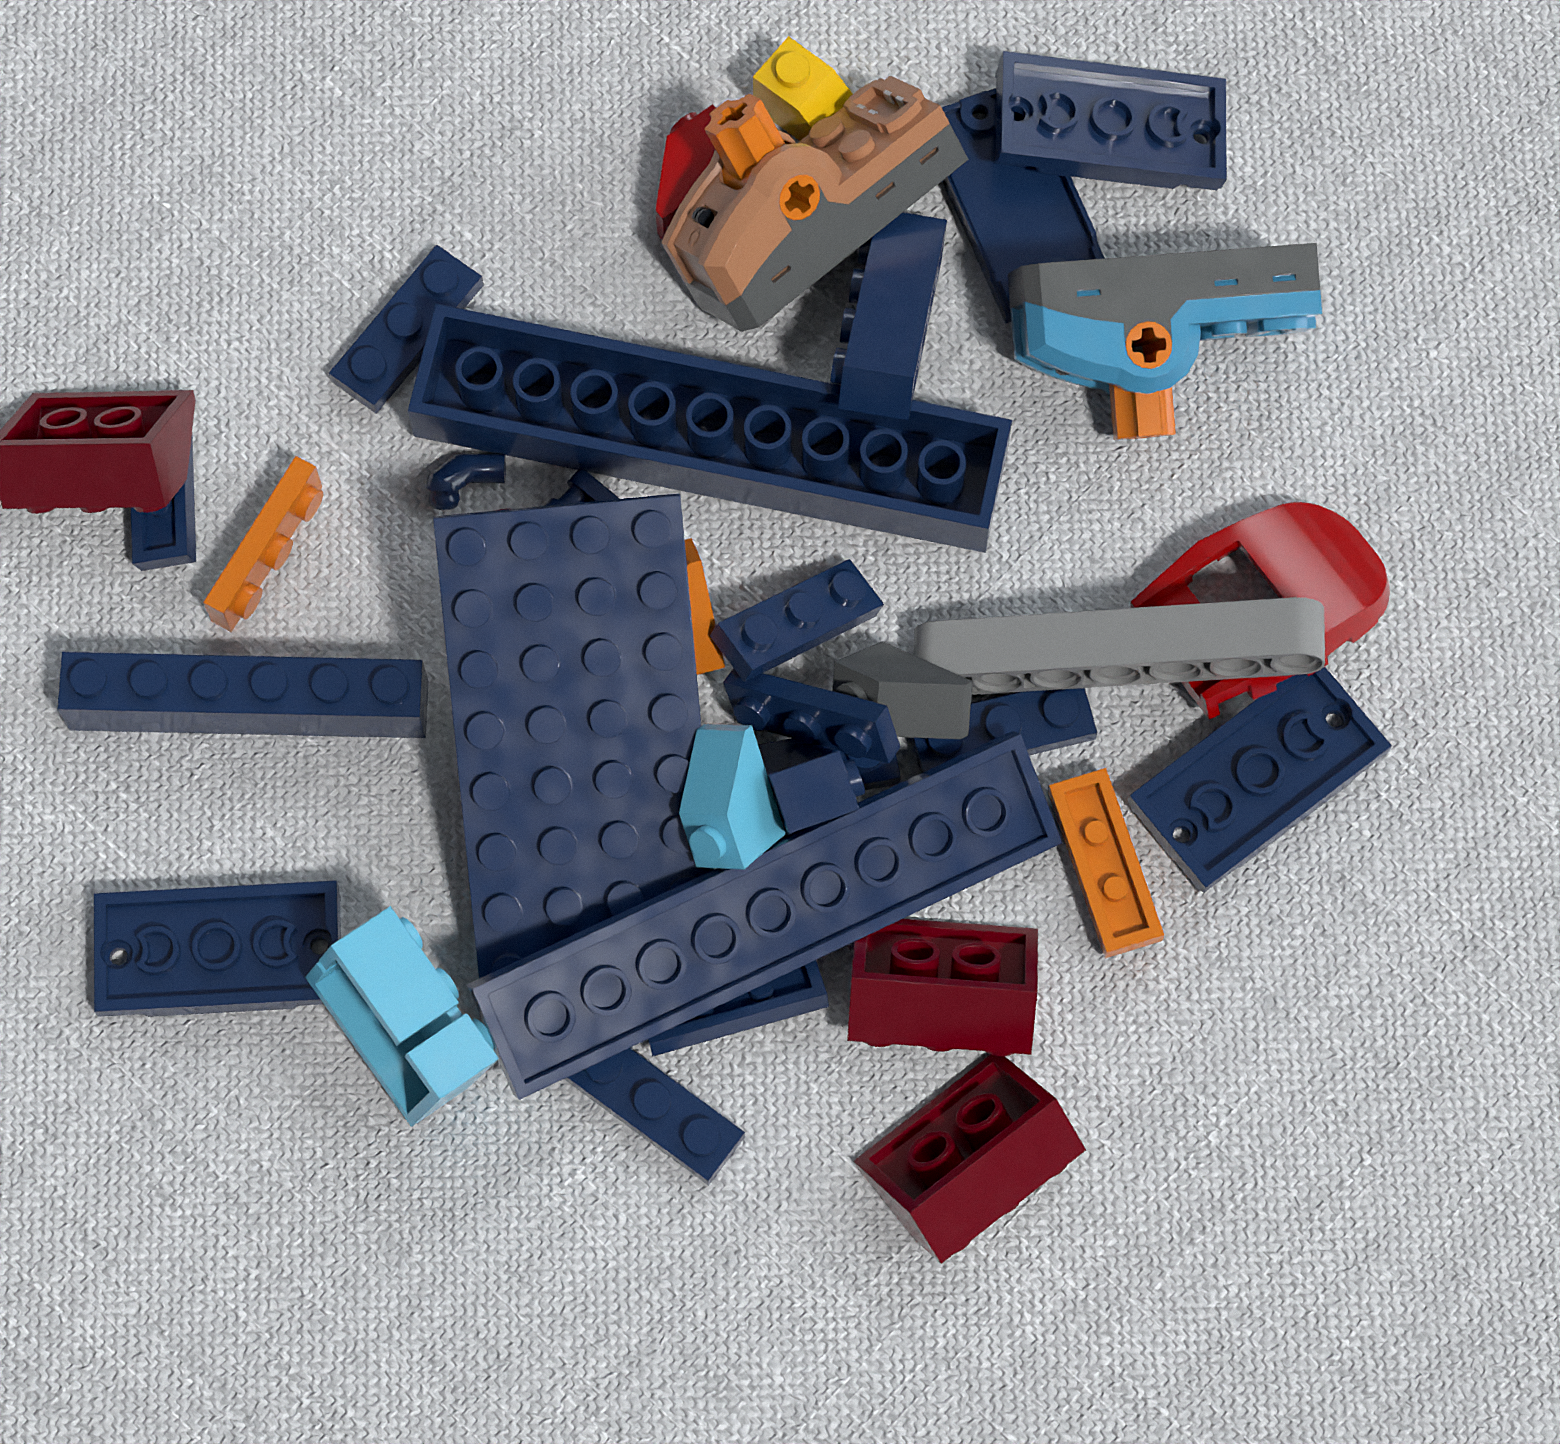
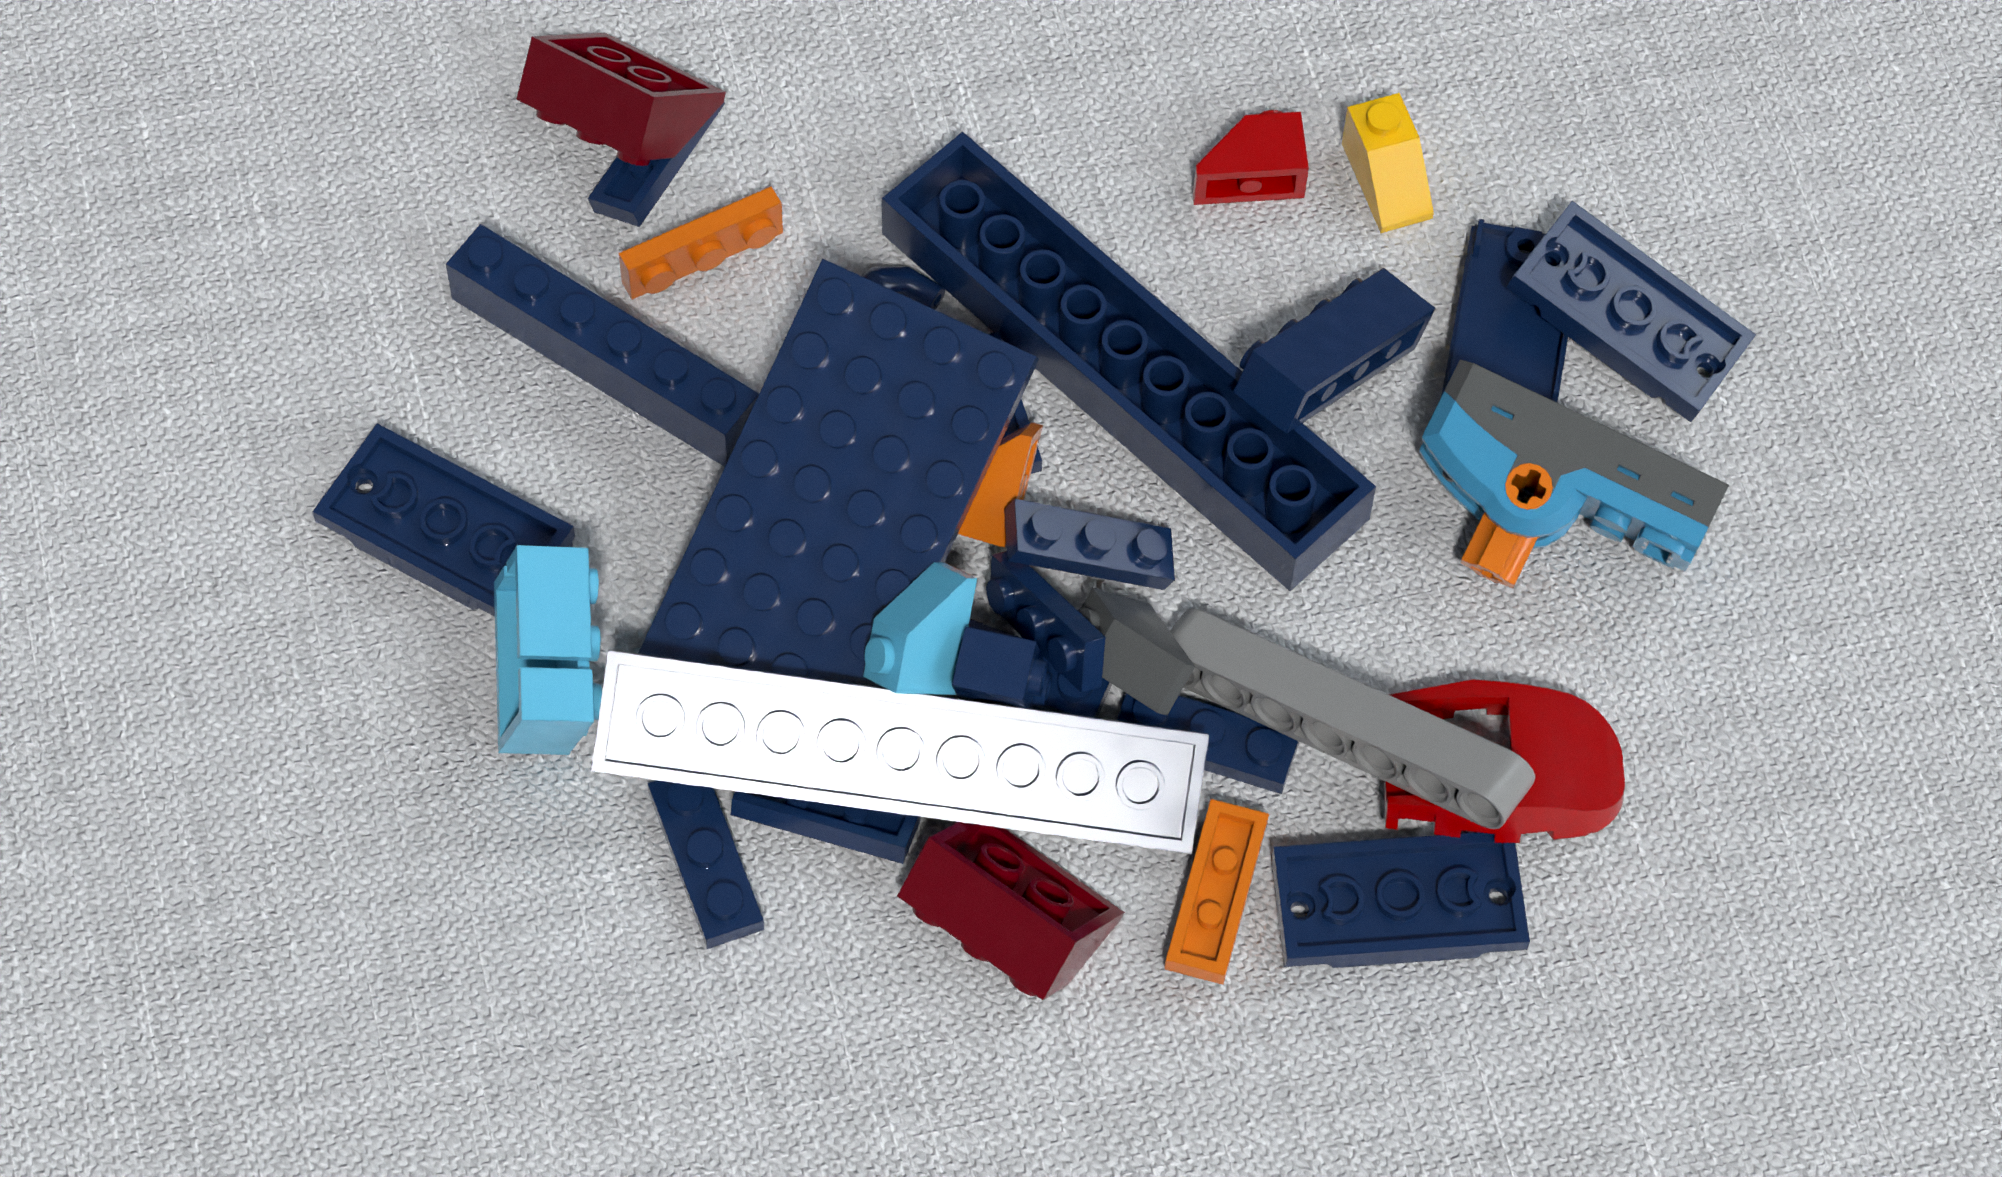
camera: 30 degrees right, 10 degrees down
(397, 335) = (891, 158): dark blue plate -> none
(786, 213) = (1302, 221): piece -> none
(970, 1155) = (936, 1054): dark red slope -> none

